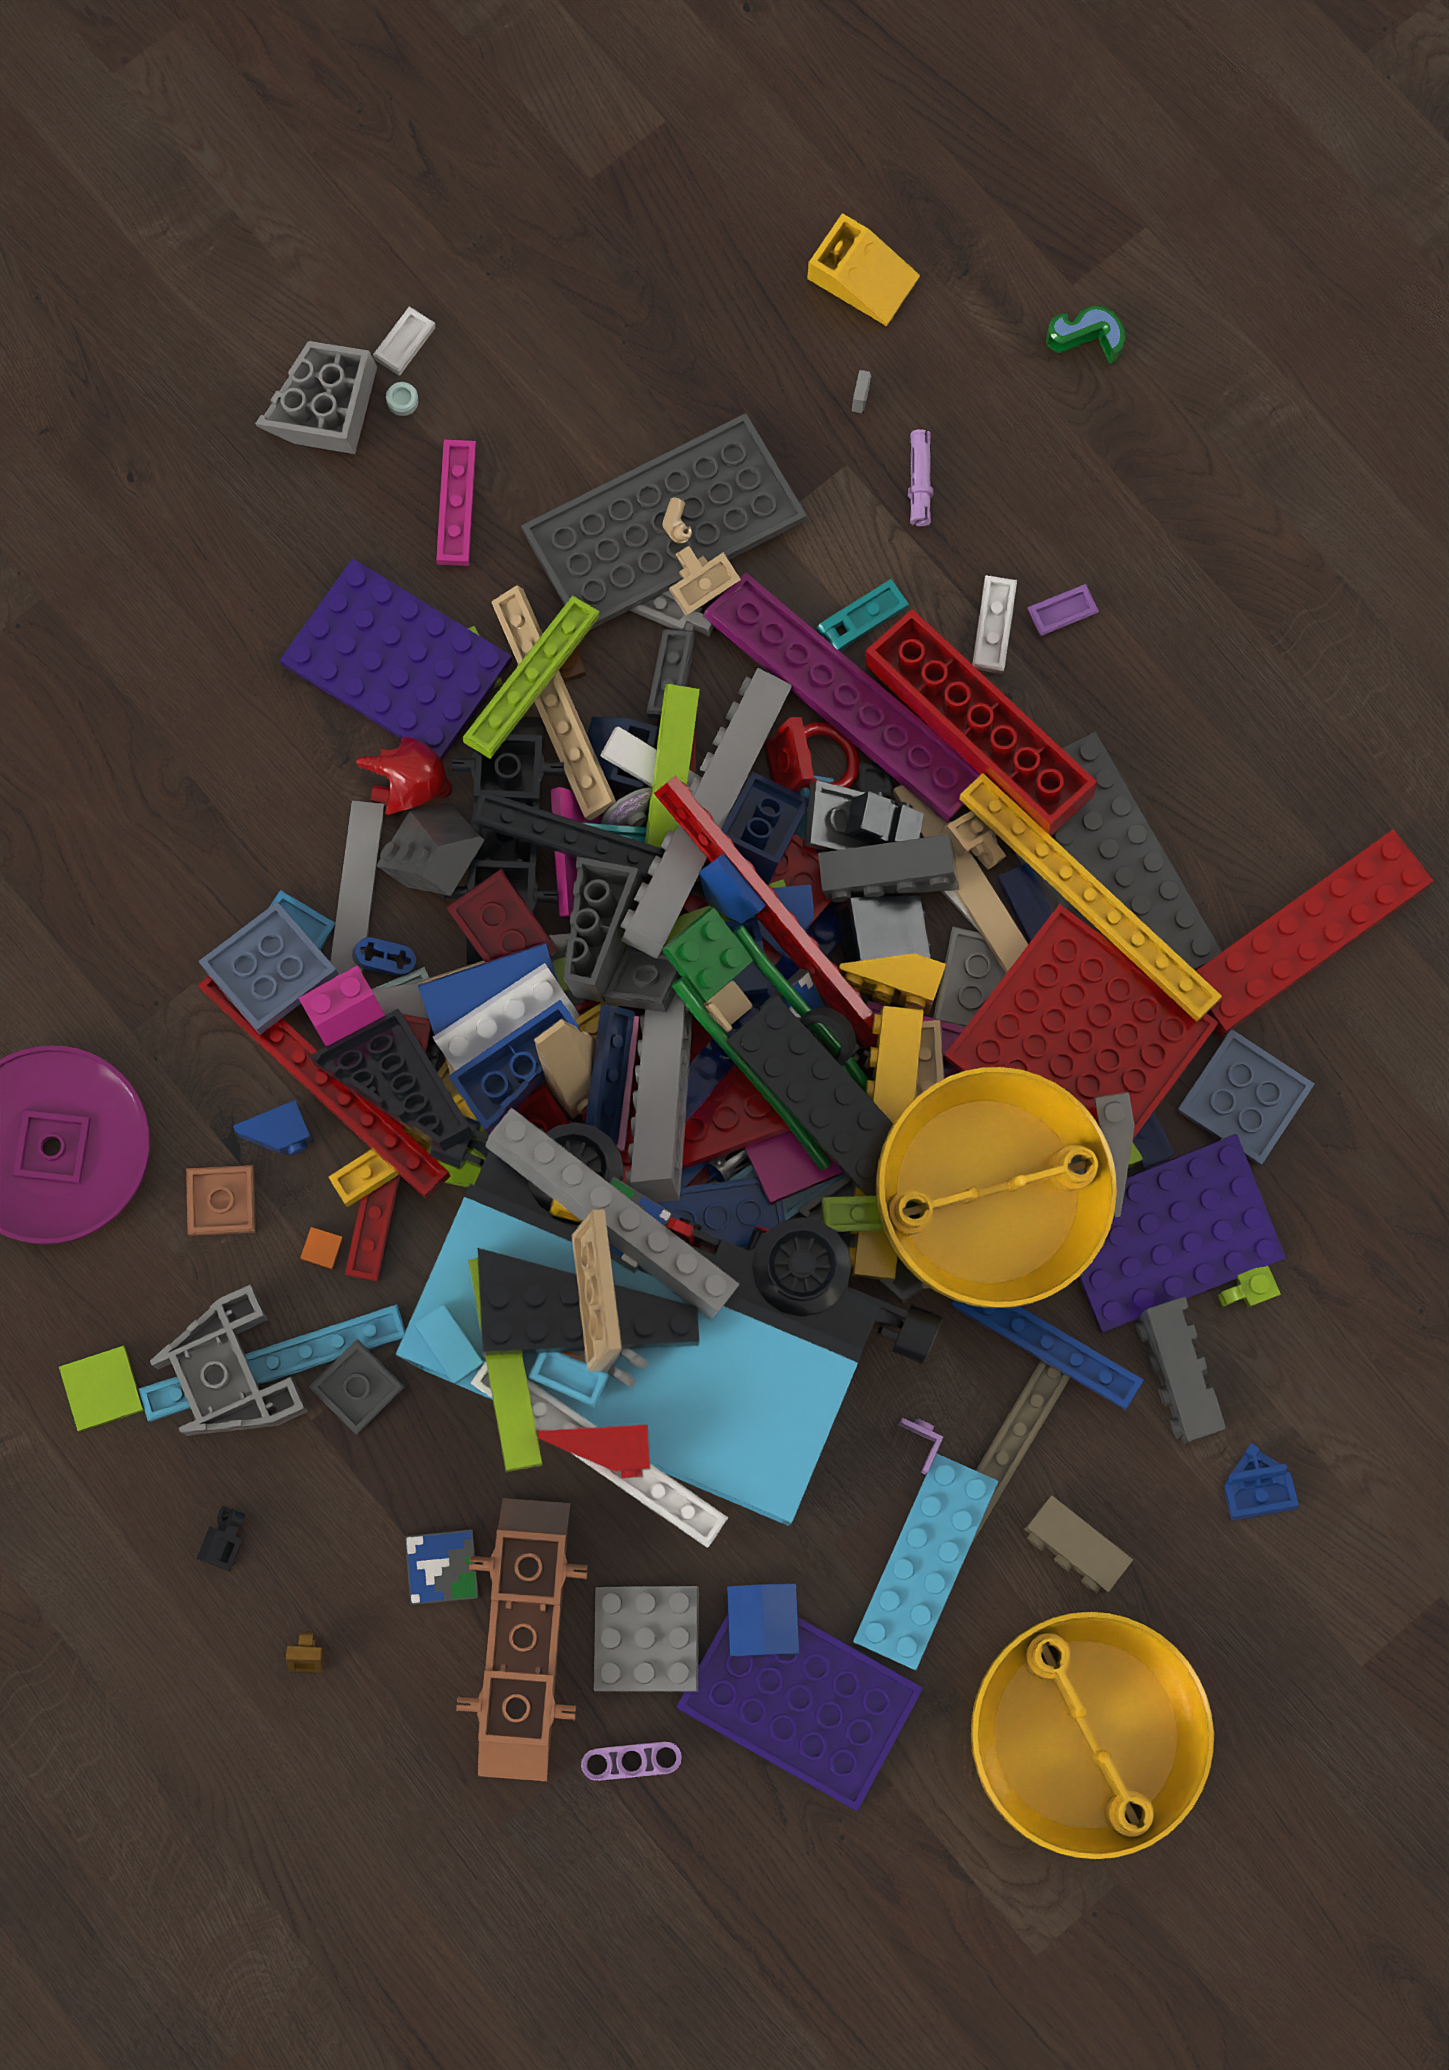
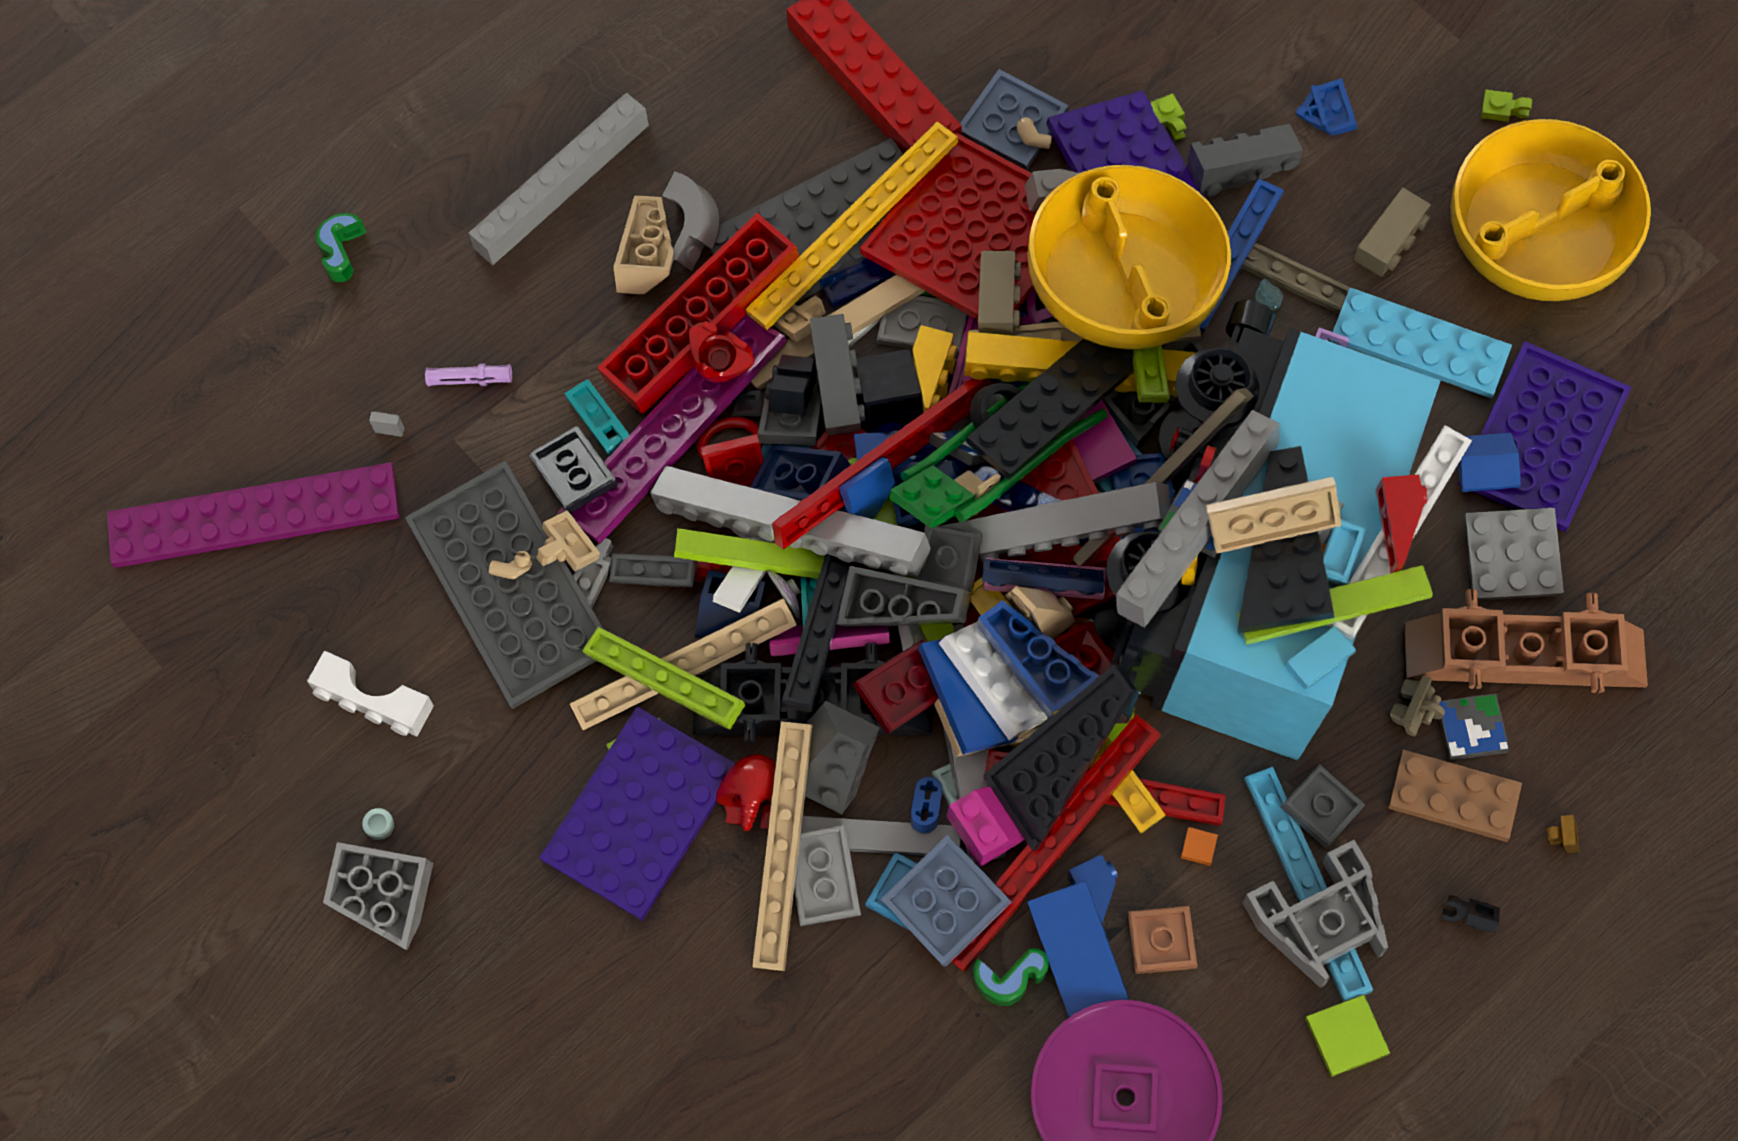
camera: 85 degrees left, 10 degrees down
(179, 1039) = (1013, 984): none -> green animal
(208, 1104) = (1077, 948): none -> blue tile
(313, 846) = (825, 877): none -> light grey tile
(340, 799) = (782, 846): none -> tan plate
(362, 1538) = (1455, 795): none -> medium nougat plate
(404, 341) = (319, 824): white tile -> none
(456, 502) = (484, 766): dark pink plate -> none
(463, 1508) = (1422, 708): none -> dark tan hips
(559, 351) = (402, 709): none -> white arch
(614, 1761) = (1614, 574): lavender beam -> none
(723, 1229) = (1178, 460): none -> dark tan tile
(761, 261) = (252, 515): none -> magenta plate
(796, 588) = (573, 469): none -> tile
(862, 270) = (270, 426): yellow slope -> none
(916, 736) = (718, 356): none -> red piece
(967, 1047) = (998, 293): none -> dark tan brick
(994, 624) = (602, 315): white tile -> none
(996, 1386) = (1269, 295): none -> clear light blue plate
(1063, 610) = (591, 261): medium lavender tile -> none
(1074, 666) = (645, 248): none -> tan wedge
(1114, 725) = (700, 222): none -> light grey arch
(1170, 572) = (559, 179): none -> light grey brick
(1214, 1113) = (1030, 135): none -> tan arm
(1260, 1703) = (1500, 106): none -> lime plate

